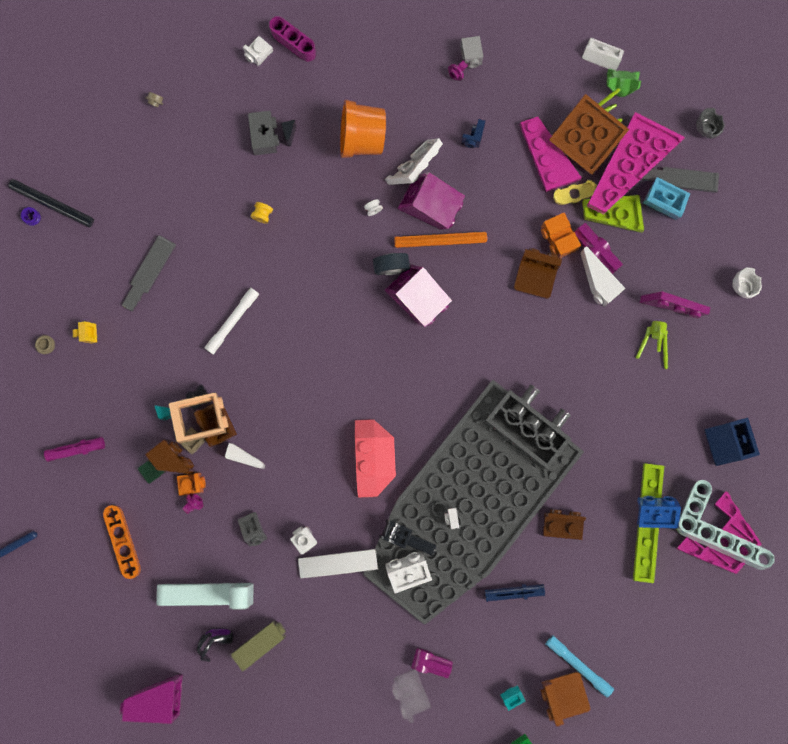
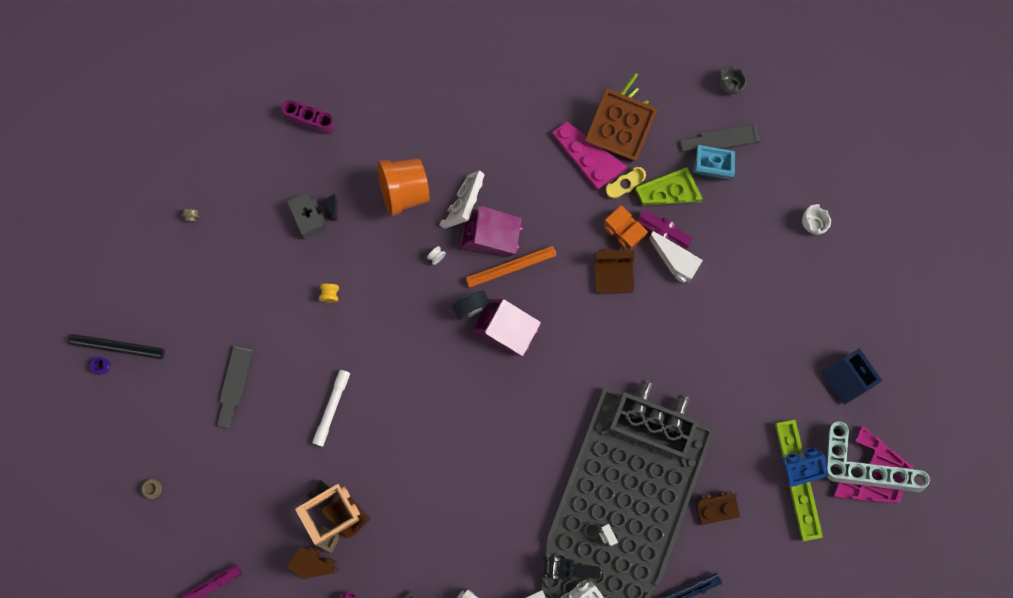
camera: 15 degrees left, 5 degrees down
(86, 332) = (189, 464): yellow tile -> none
(149, 472) = (294, 583): clear green tile -> none
(163, 413) = (291, 520): teal slope -> none
(191, 484) = (339, 583): orange bracket -> none
(236, 454) = (380, 539): white slope -> none
(257, 51) = (277, 138): white bracket -> none
(373, 458) = (512, 500): coral wedge -> none
(456, 72) = (476, 102): magenta plate -> none
(471, 51) = (484, 79): light grey brick -> none
(474, 139) = (514, 154): dark blue bracket -> none
(603, 54) = (610, 44): white slope -> none
(626, 81) = (637, 64): bright green piece -> none
(634, 157) = (670, 134): dark pink wing -> none
(658, 331) = (748, 291): lime plant -> none
(675, 303) = (756, 260): magenta wing -> none

